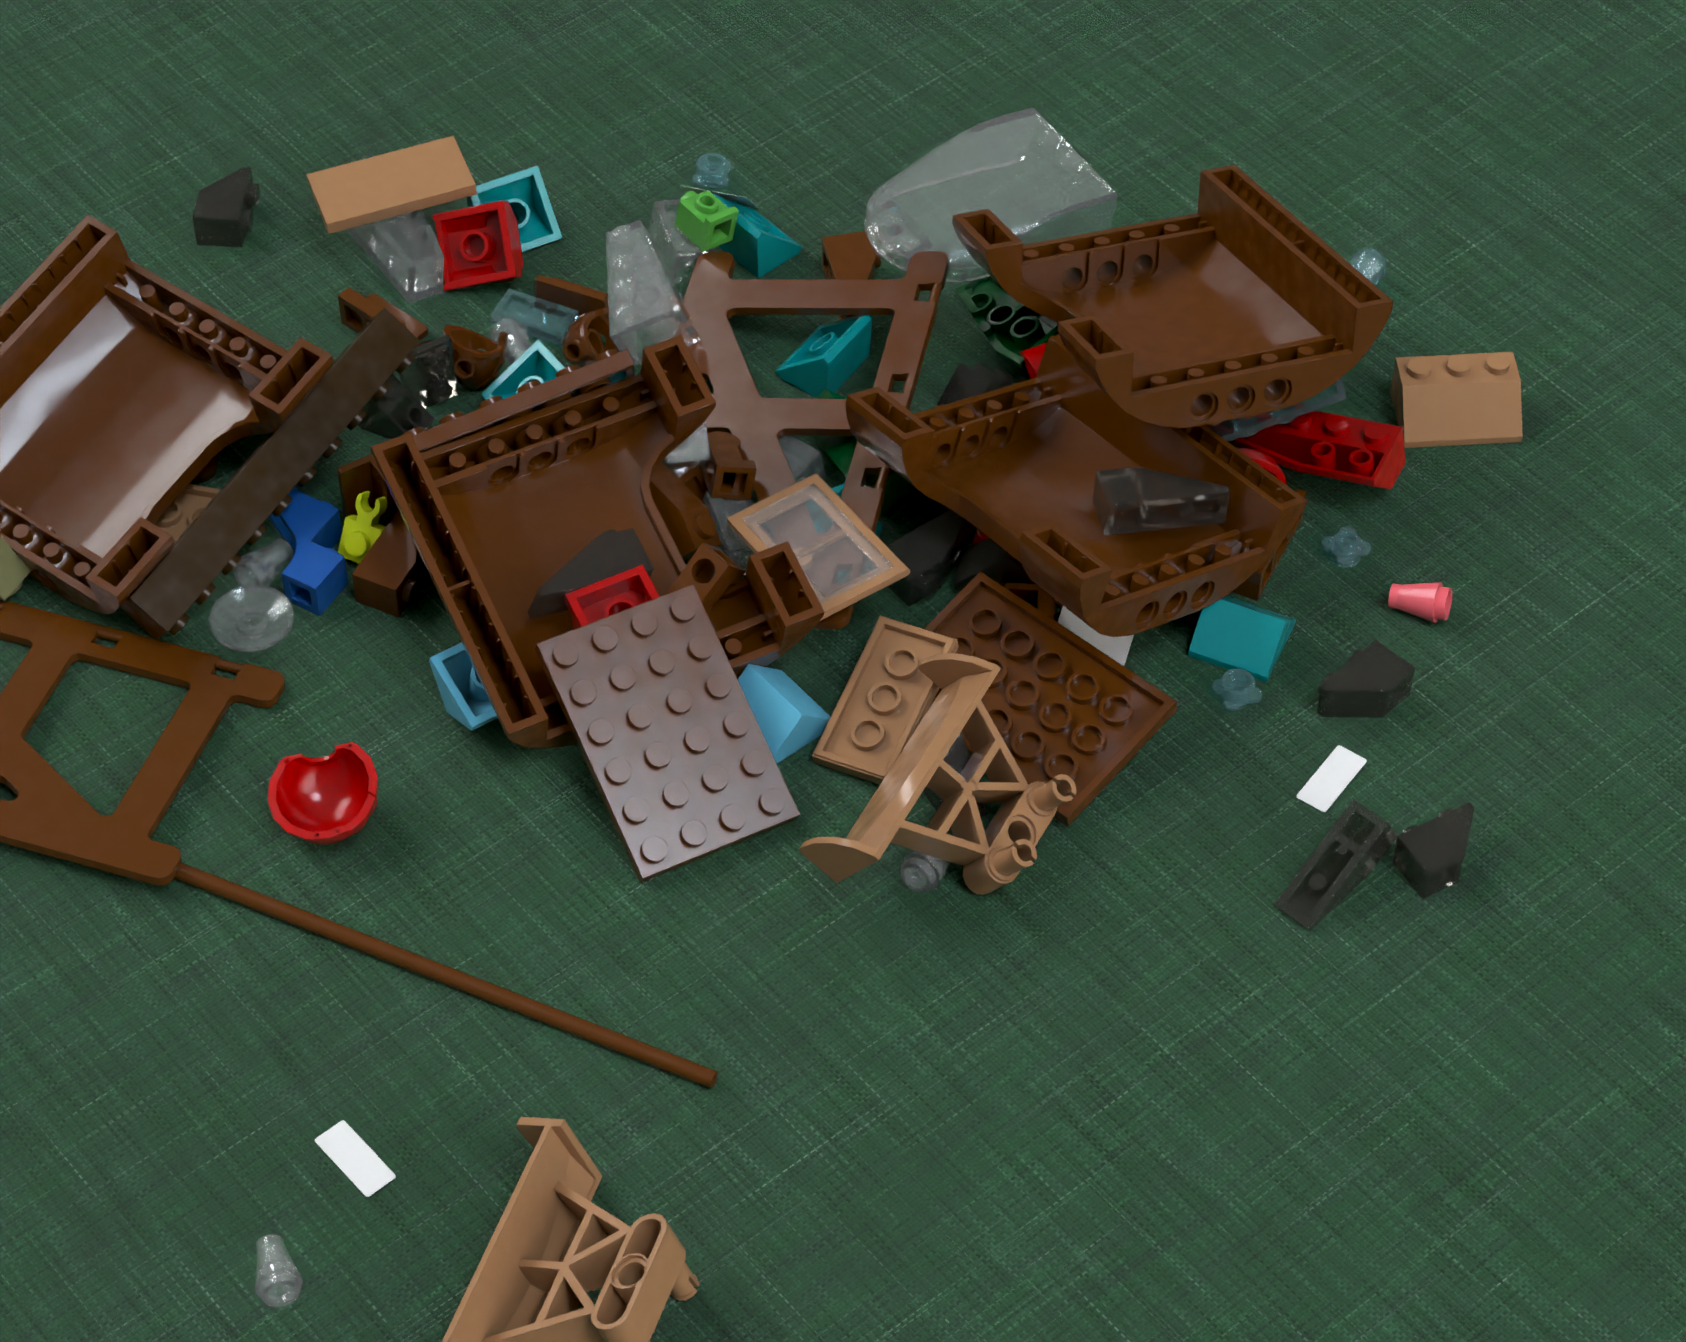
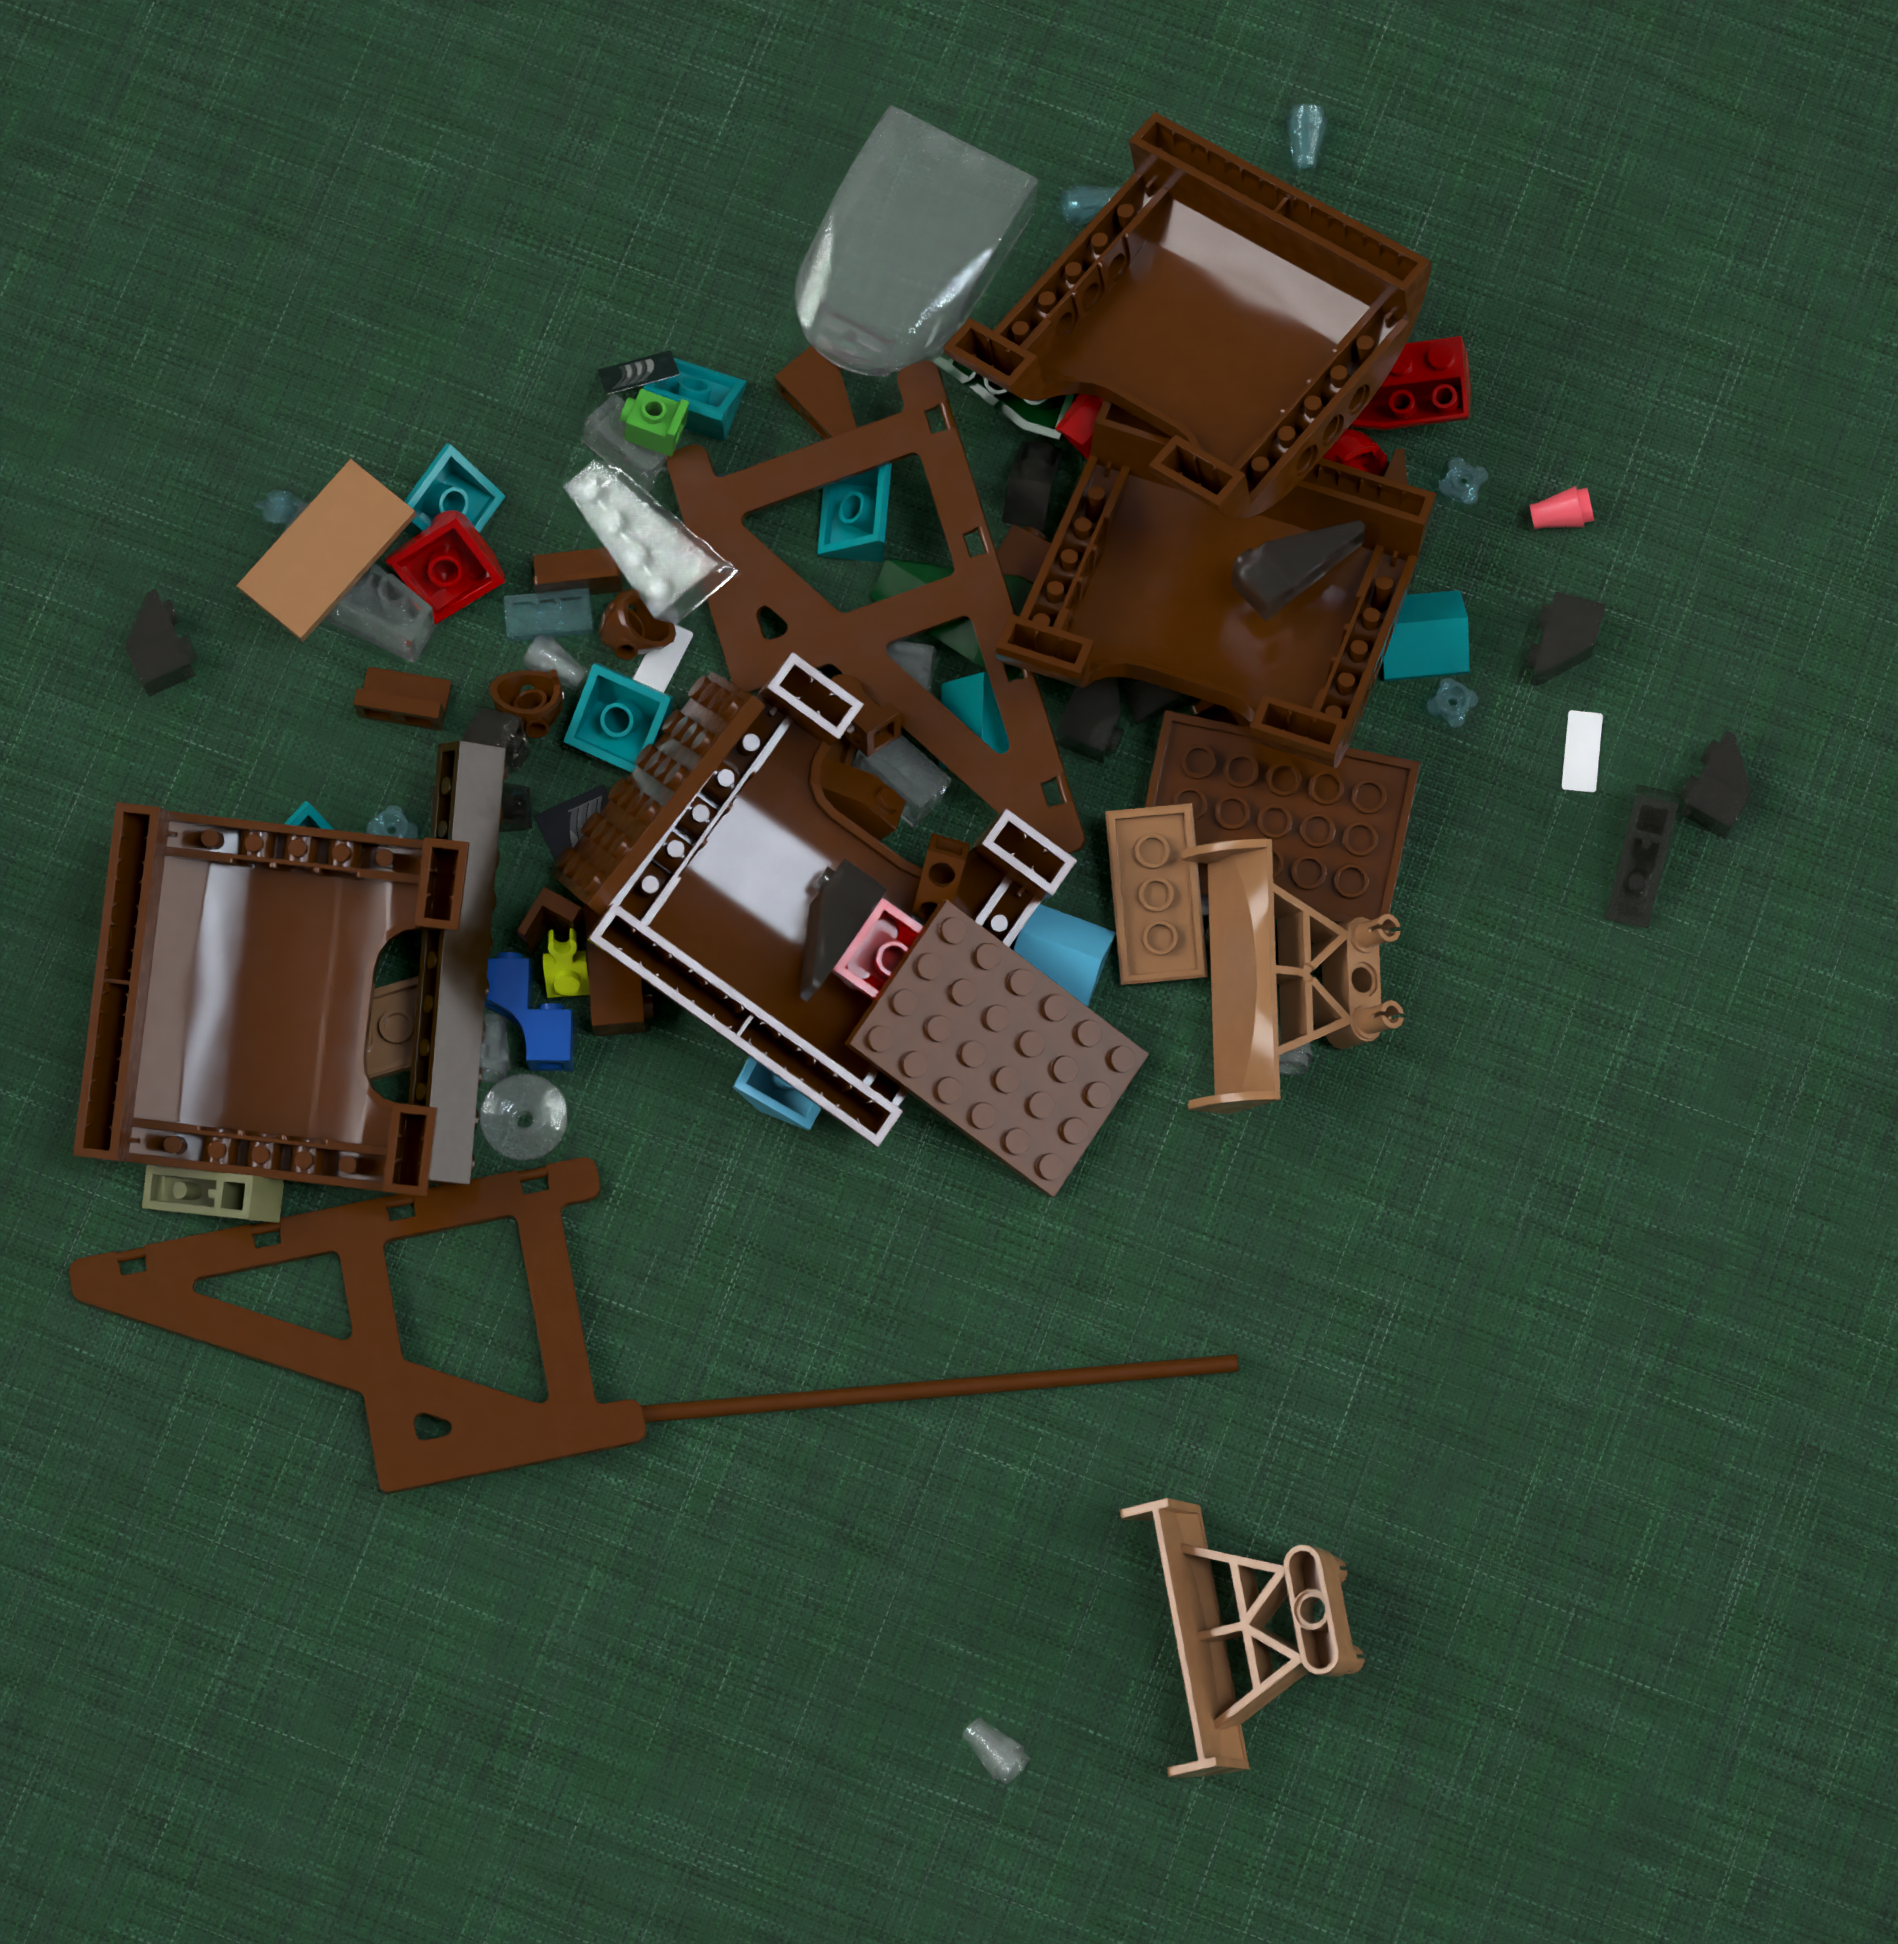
camera: 25 degrees left, 25 degrees up
(324, 796) = (731, 1278): red cylinder -> none
(355, 1158) = (983, 1605): white sticker -> none
(712, 171) = (593, 324): clear light blue plate -> none
(828, 539) = (998, 760): clear door -> none
(1457, 399) = (1480, 249): medium nougat slope -> none

